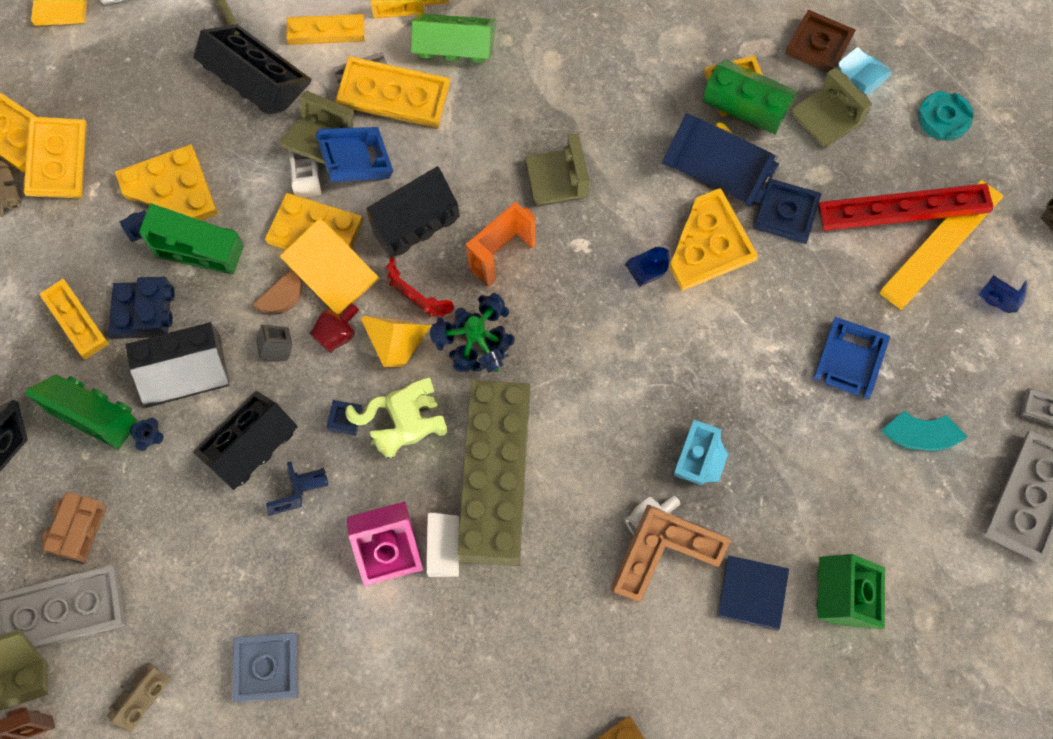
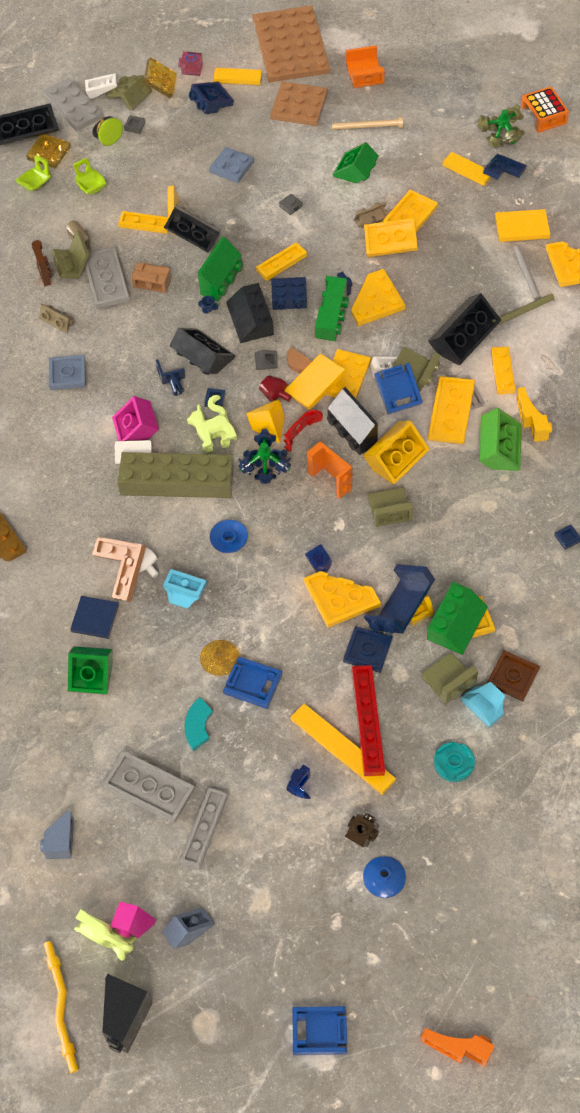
camera: 90 degrees right, 10 degrees down
(464, 163) = (396, 451): none -> yellow slope
(613, 379) = (228, 530): none -> blue dish
(805, 417) = (221, 664): none -> clear yellow dish

